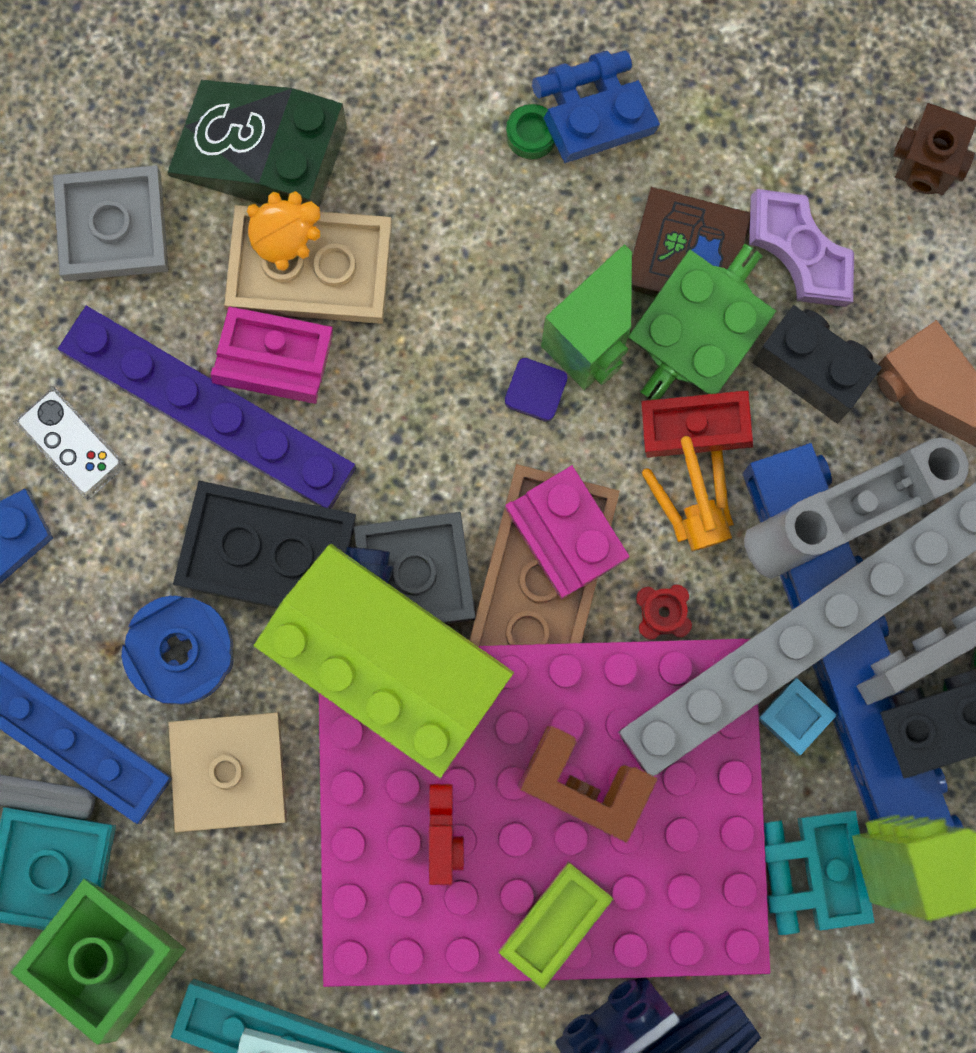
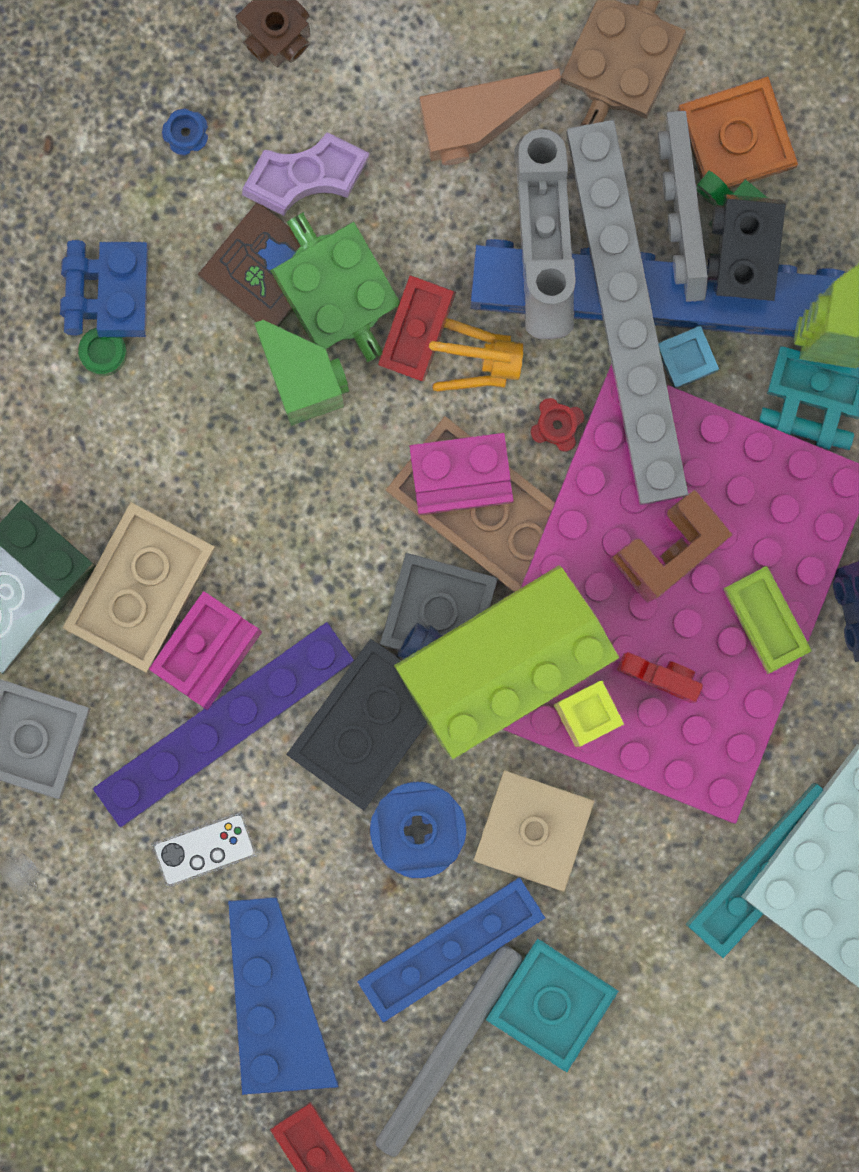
camera: 65 degrees left, 5 degrees up
(98, 962) = (641, 989): bright green slope -> none
(282, 228) = (105, 595): light orange piece -> none
(366, 772) = (588, 714): none -> neon yellow brick
(535, 389) = (327, 446): dark purple piece -> none
(788, 102) = (185, 119): none -> blue plate
(817, 363) = (409, 208): black brick -> none

